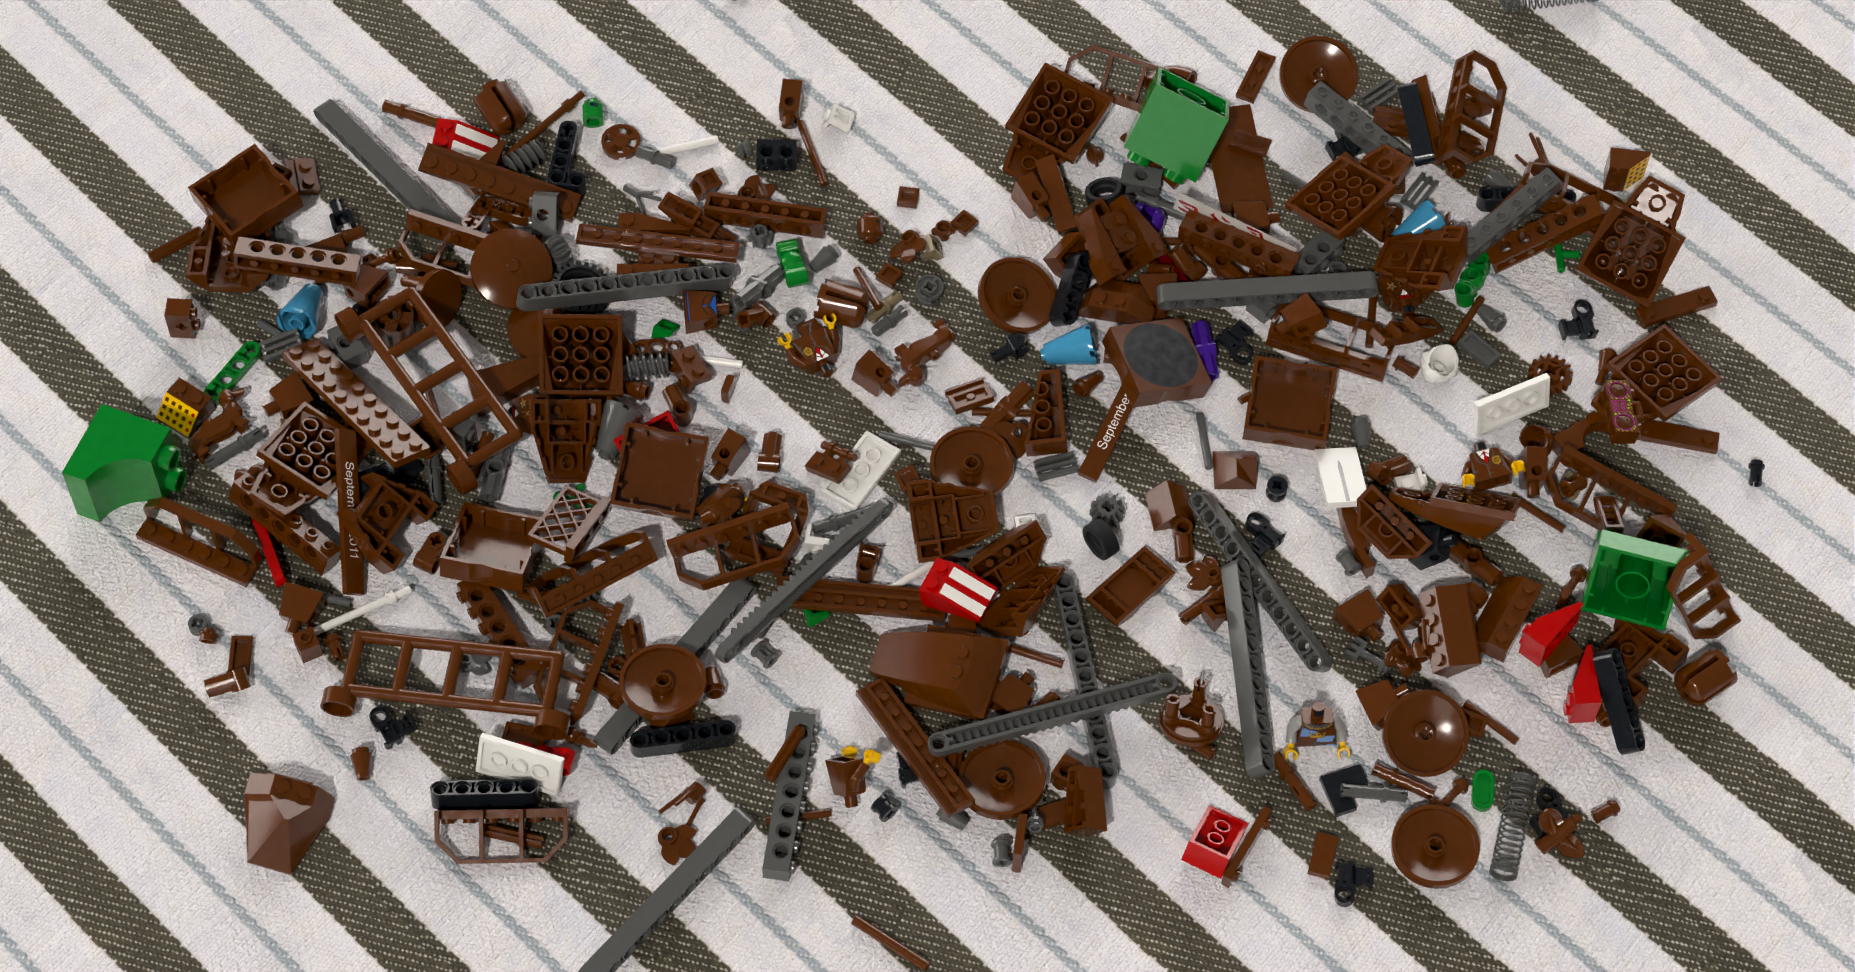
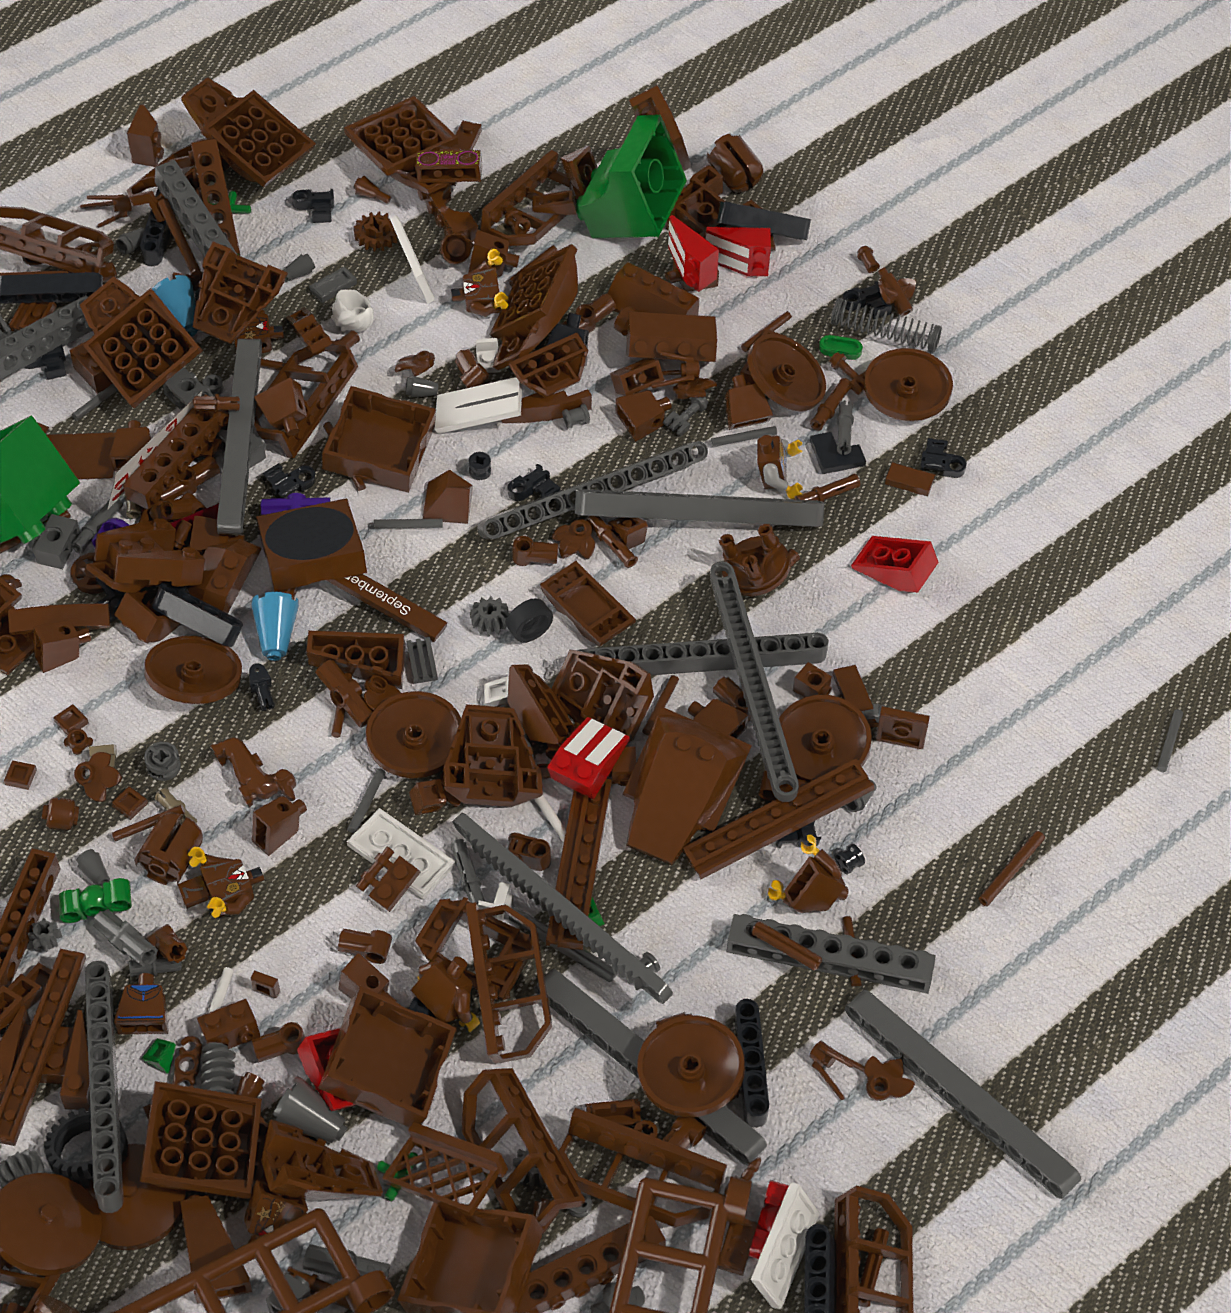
camera: 85 degrees left, 5 degrees down
(791, 314) = (167, 901): dark grey bush -> none
(889, 321) = (197, 805): dark grey axle -> none
(969, 396) = (317, 733): reddish brown plate -> none
(1001, 853) = (906, 752): dark grey bush -> none
(1084, 802) = (859, 661): reddish brown wedge -> none
(1085, 385) = (320, 618): reddish brown cone -> none
(1101, 186) = (57, 568): black tyre -> none
(1167, 504) = (489, 564): reddish brown slope -> none
(1233, 871) = (887, 527): reddish brown plate -> none
(1285, 261) = (216, 403): none -> reddish brown axle
(1352, 708) = (743, 436): none -> dark grey bar
(1389, 425) = (417, 363): none -> reddish brown plate
(1466, 320) = (302, 293): reddish brown bar -> none
(1577, 575) = (632, 251): reddish brown hinge -> none
(1676, 306) = (309, 124): reddish brown plate -> none
(1756, 470) = (510, 102): black pin -> none

